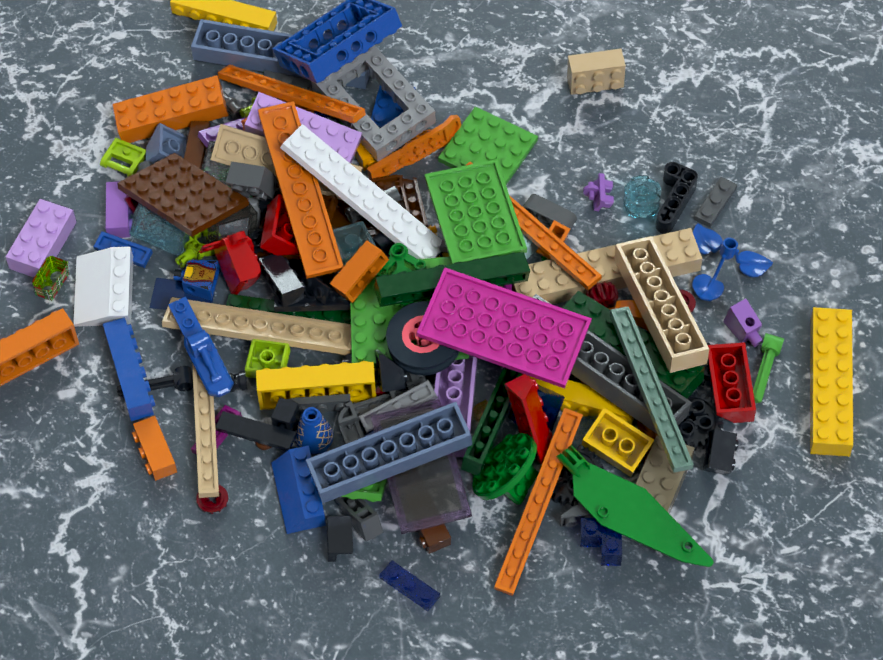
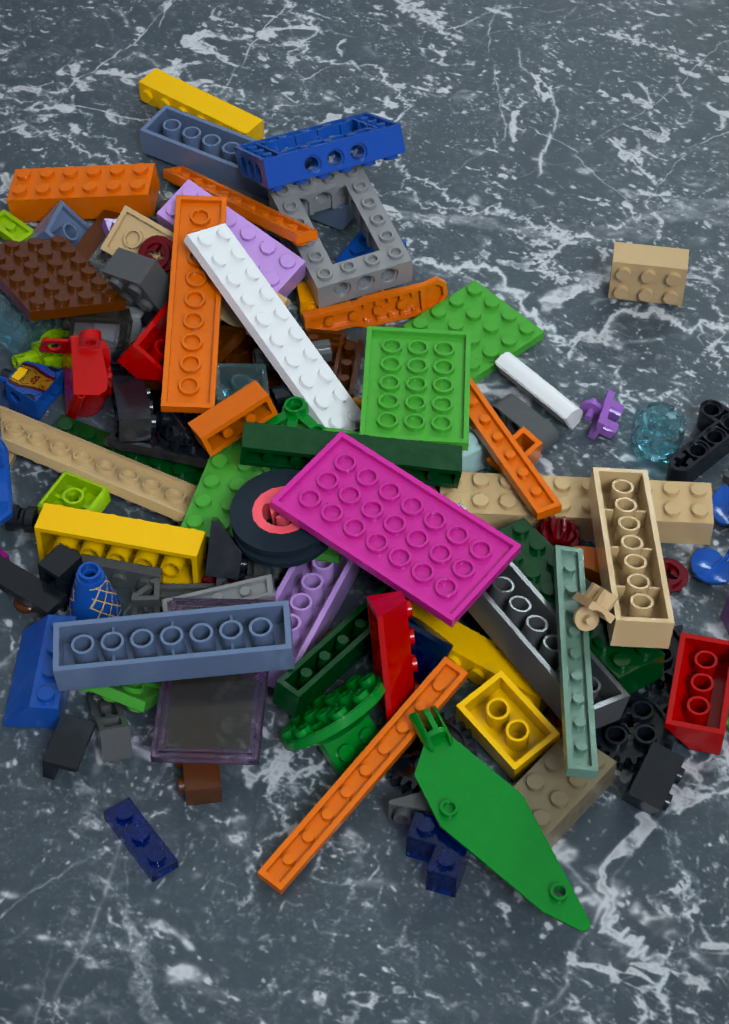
camera: 15 degrees right, 10 degrees down
(251, 150) = (154, 245): none -> dark red gear
(550, 184) = (539, 390): none -> white brick
(654, 349) = (596, 603): none -> tan hips

